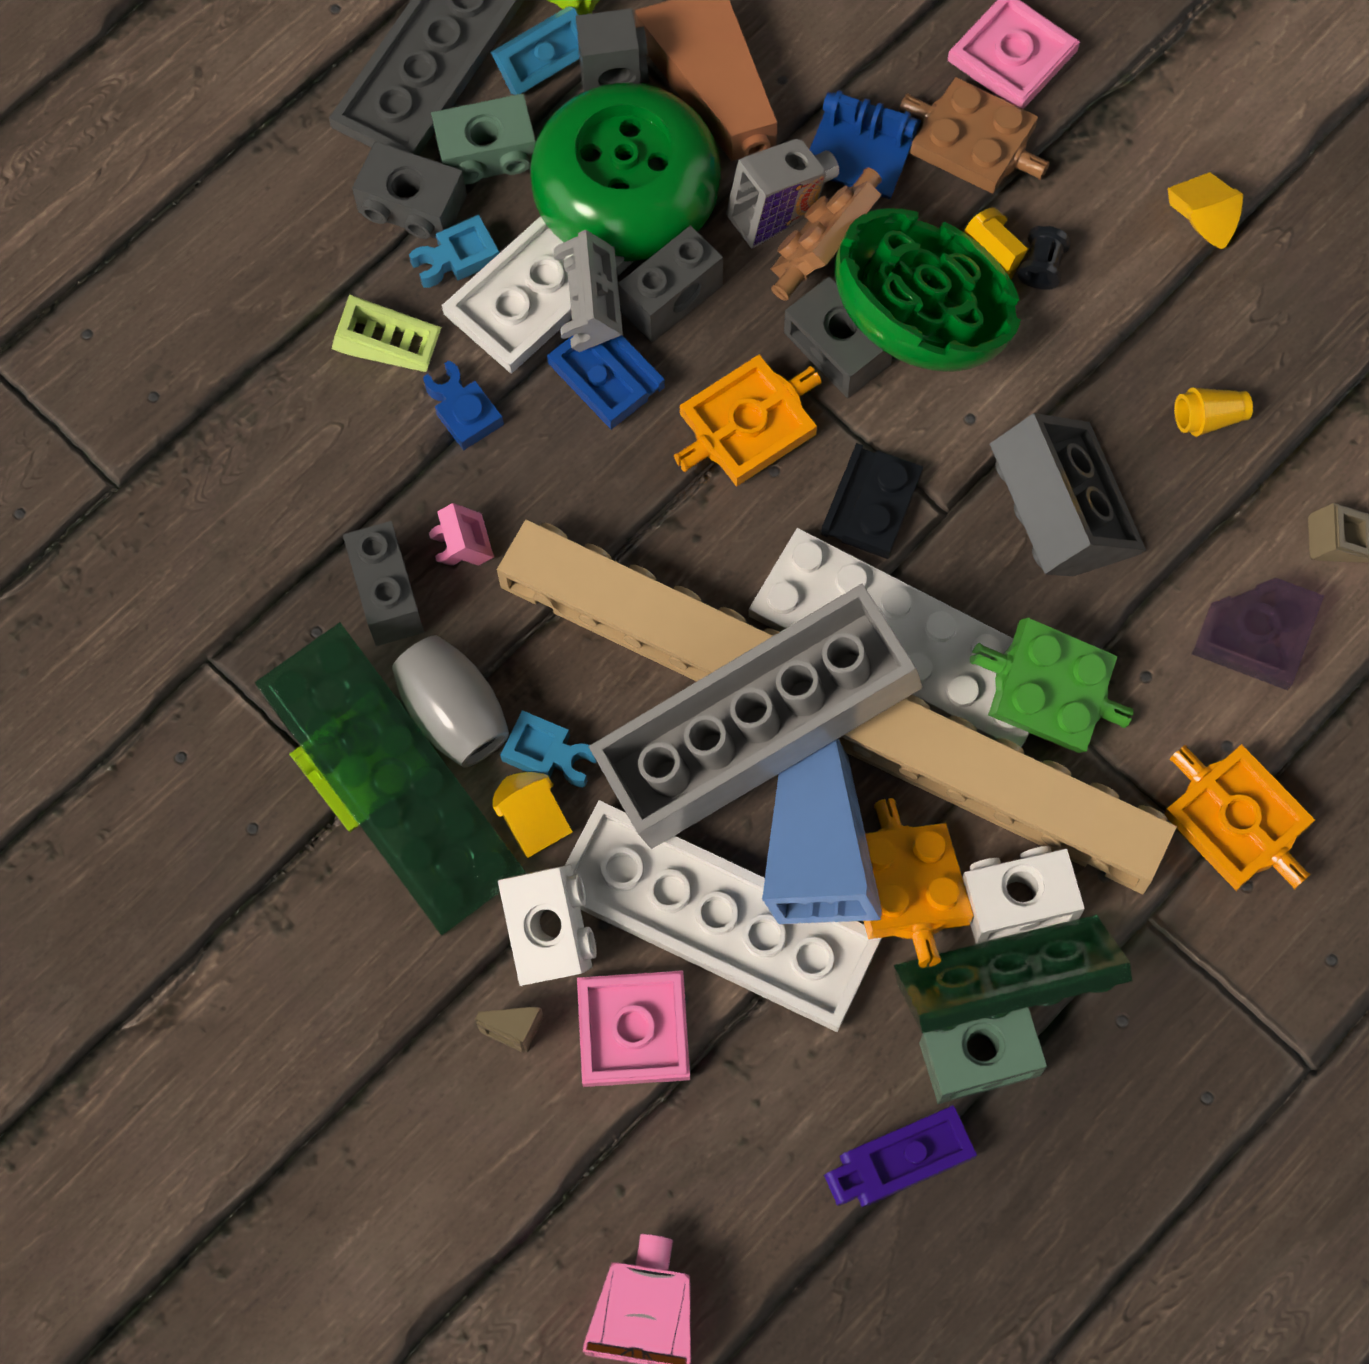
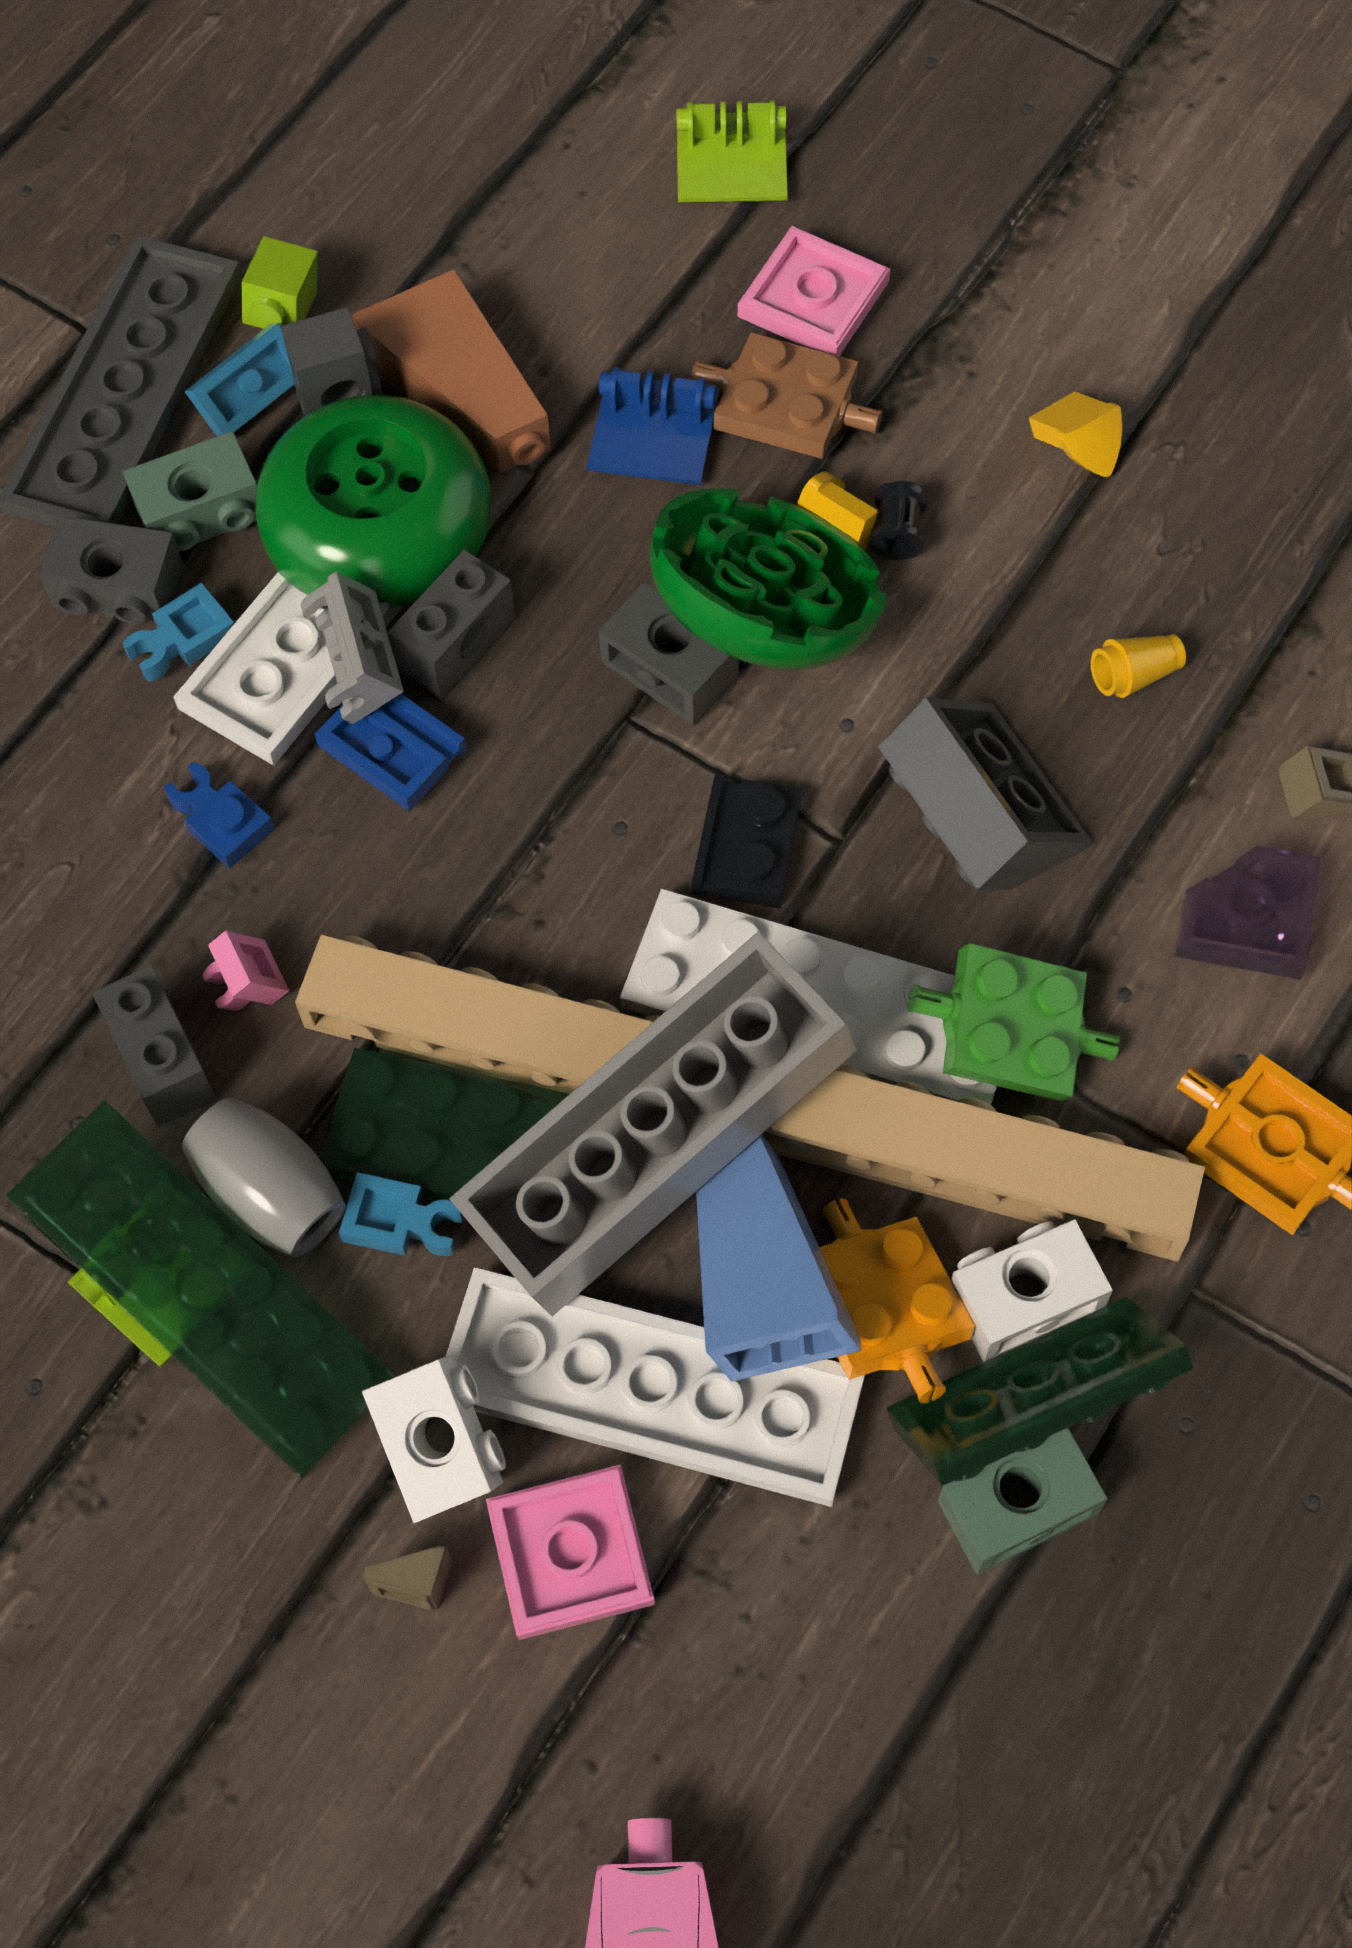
camera: 10 degrees left, 5 degrees down
(381, 351) = (94, 724): yellowish green slope -> none
(530, 811) = (390, 1298): yellow tile -> none
(583, 680) = (426, 1122): none -> clear green plate
(748, 419) = (576, 770): light orange plate -> none
(777, 189) = (561, 493): light grey torso -> none
(823, 233) = (627, 533): medium nougat plate -> none
(901, 1159) = (945, 1655): dark purple hinge -> none

